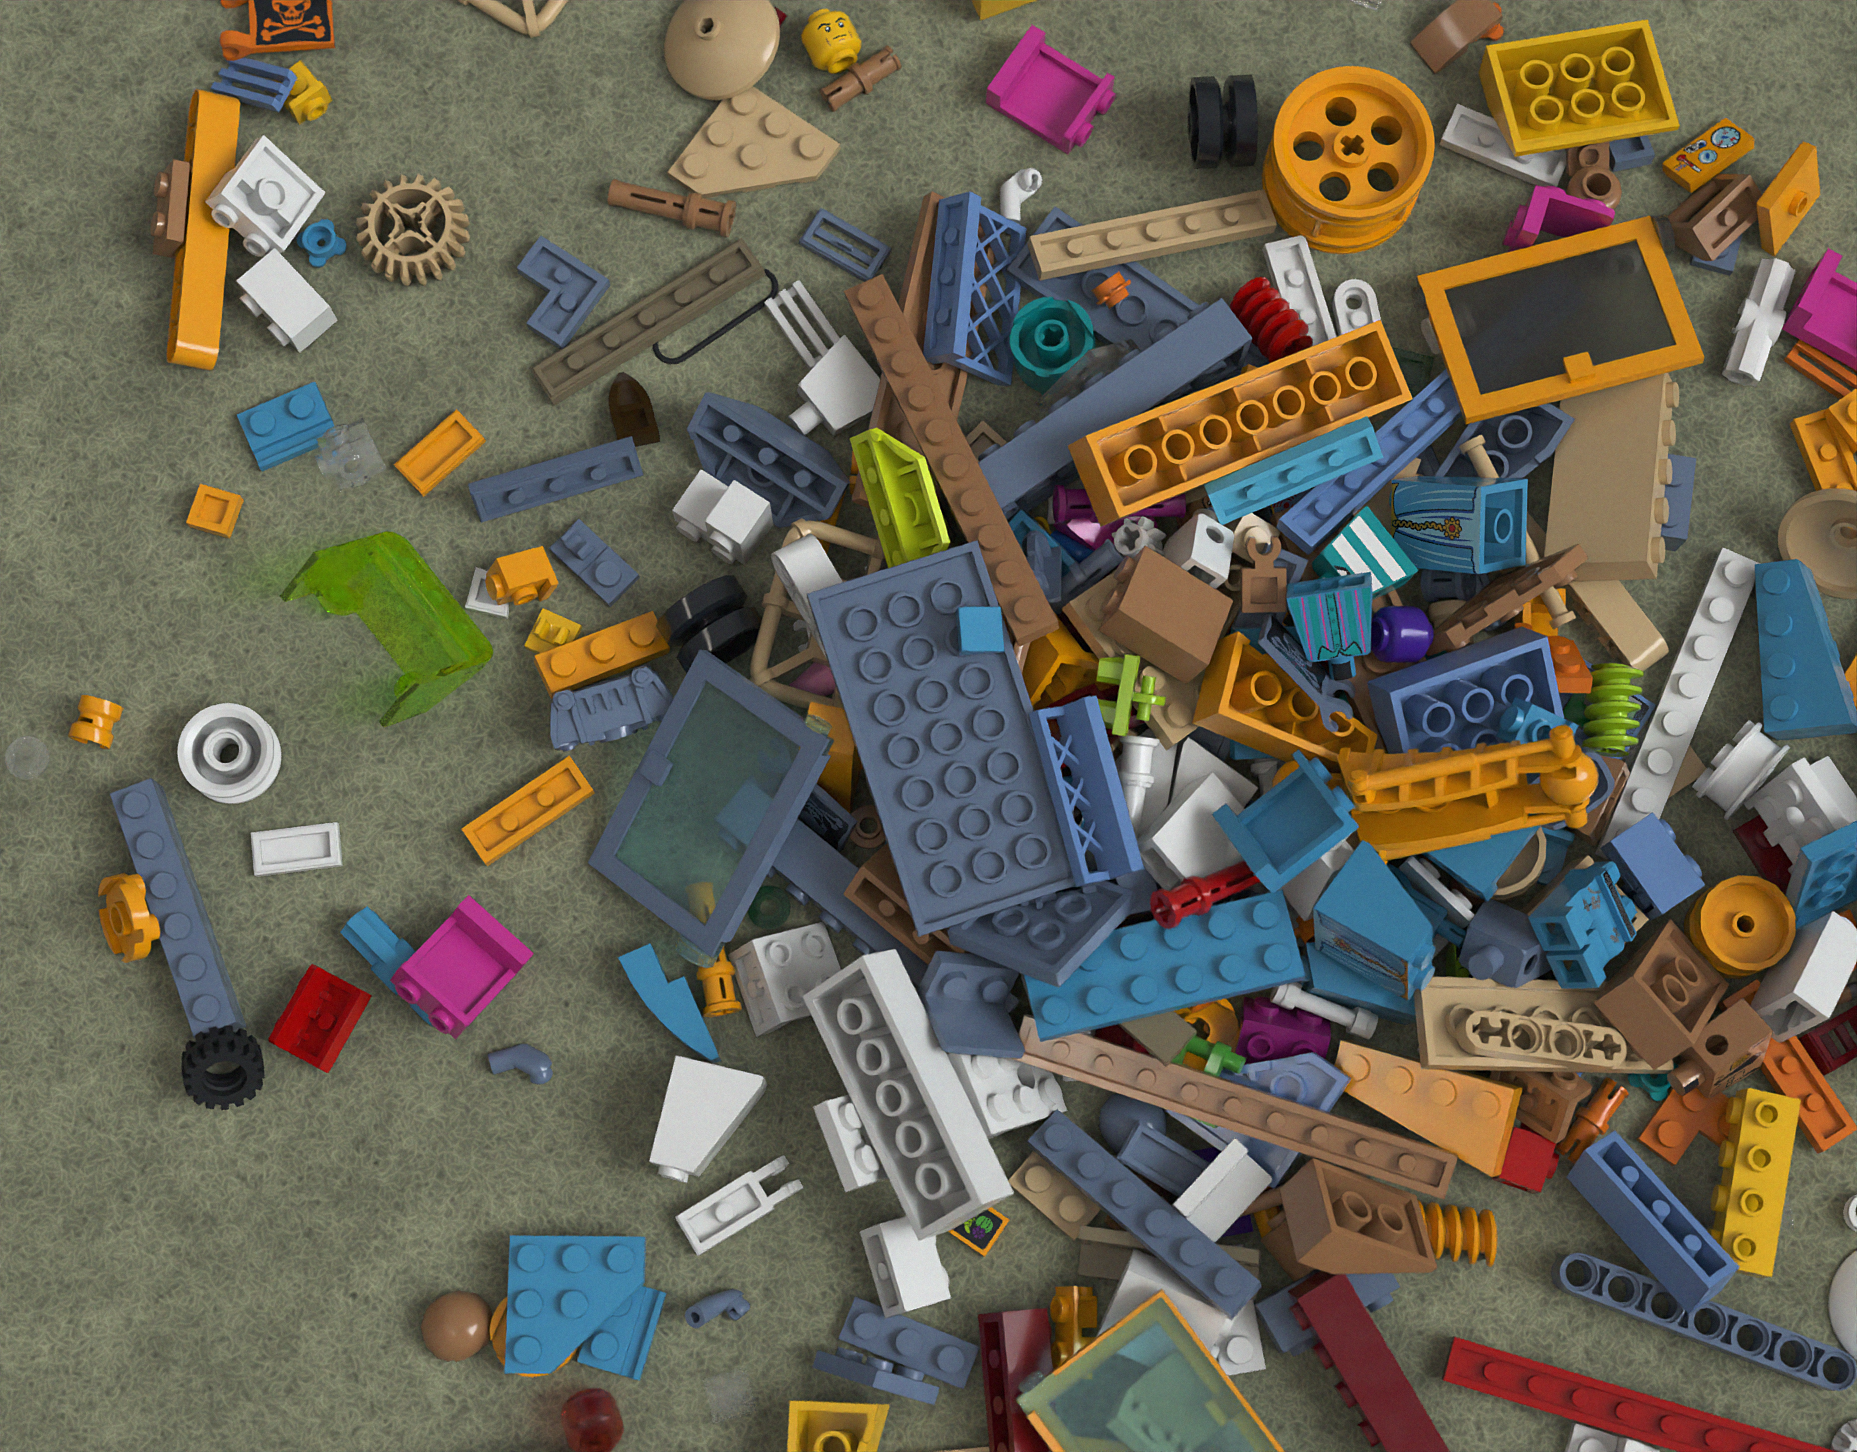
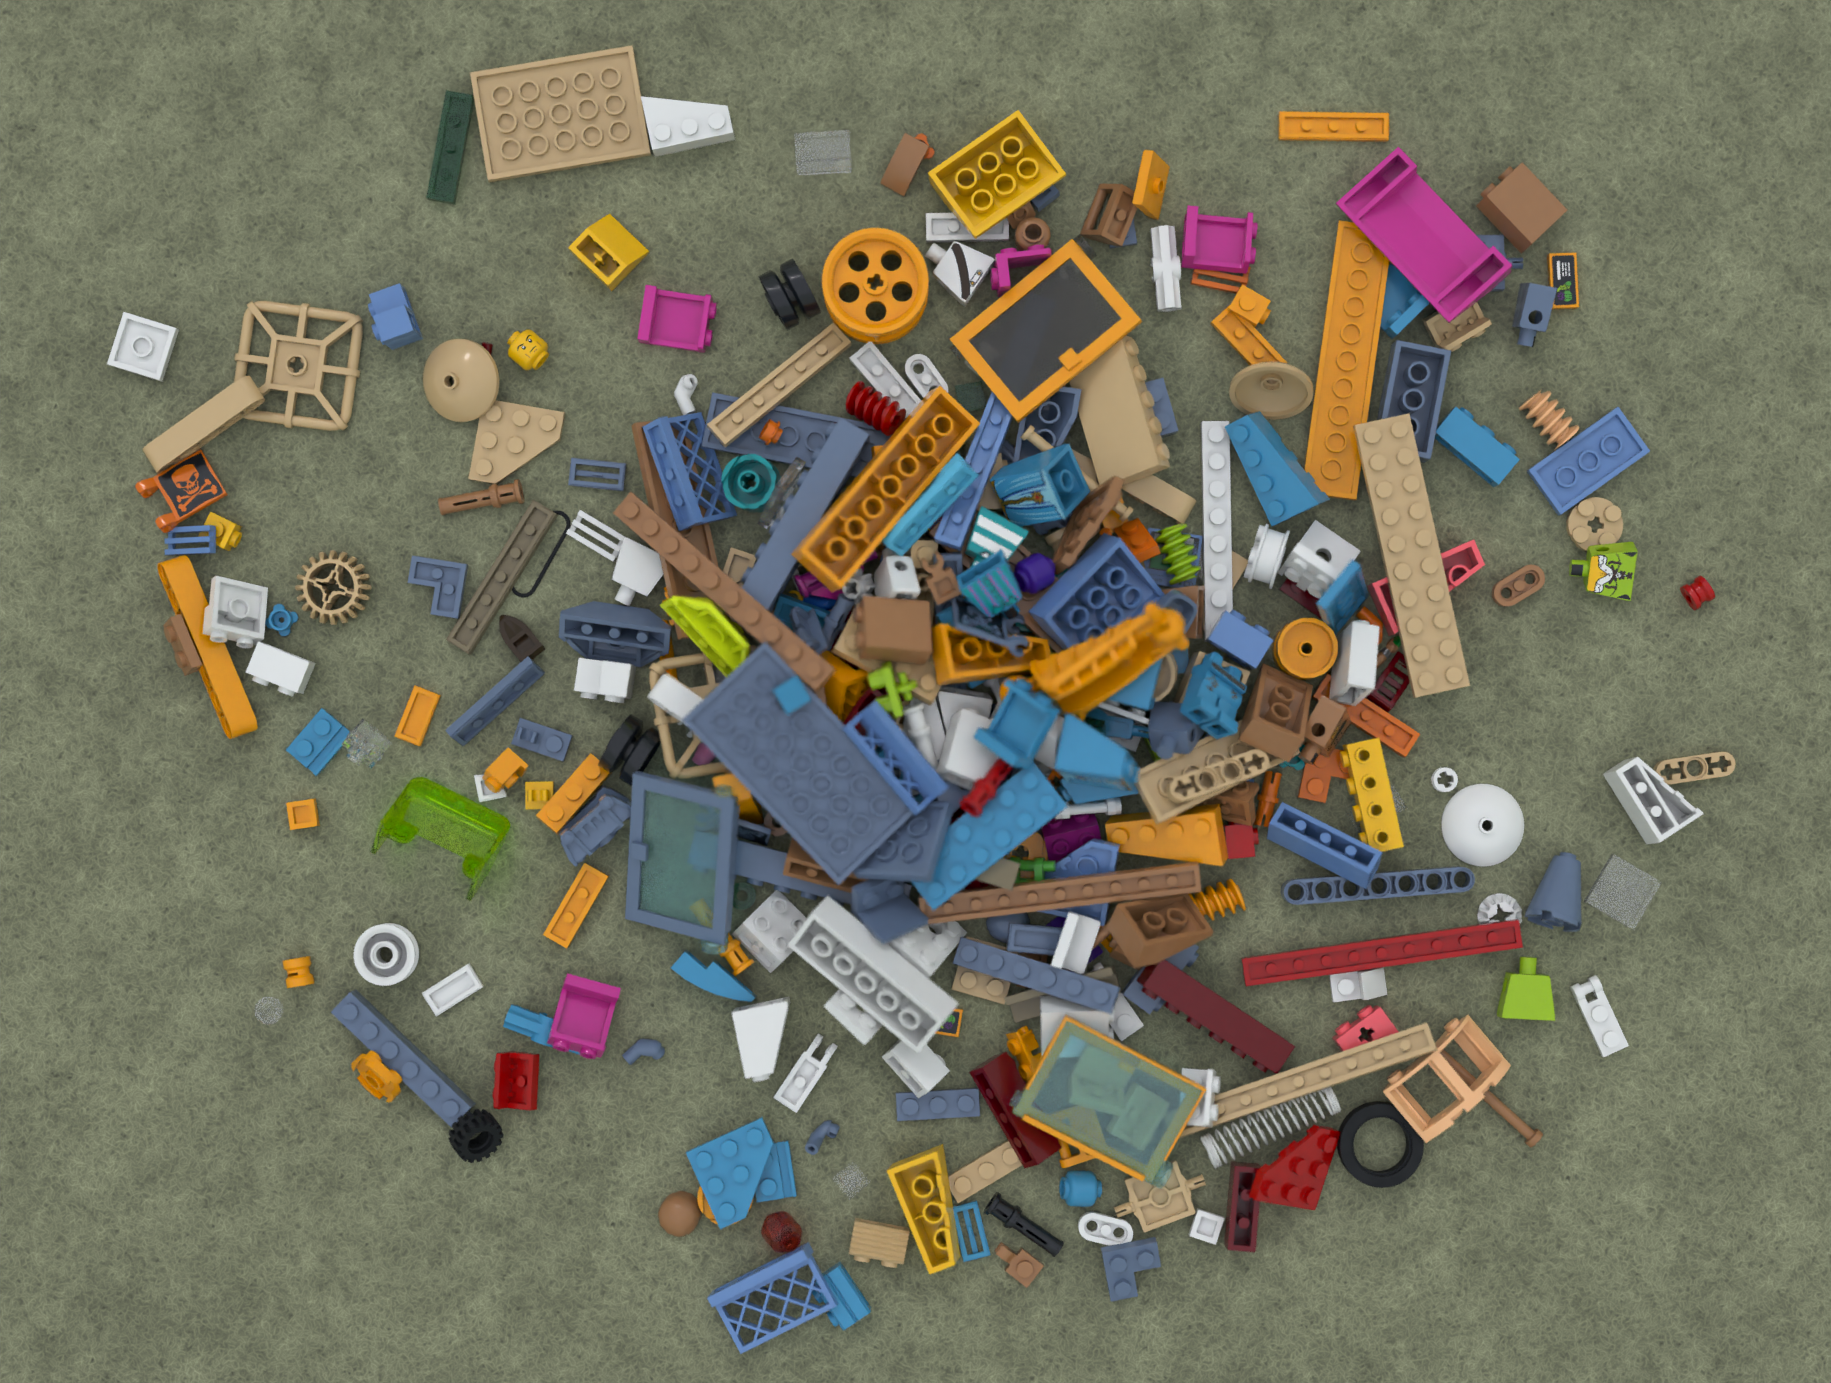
camera: 25 degrees left, 10 degrees up
(860, 78) = (556, 363): medium nougat pin -> none
(876, 1374) = (928, 1133): sand blue plate -> none
(1471, 197) = (959, 269): none -> white torso
(1529, 722) = (1136, 594): dark azure brick -> none
(1708, 155) = (1091, 174): light orange tile -> none

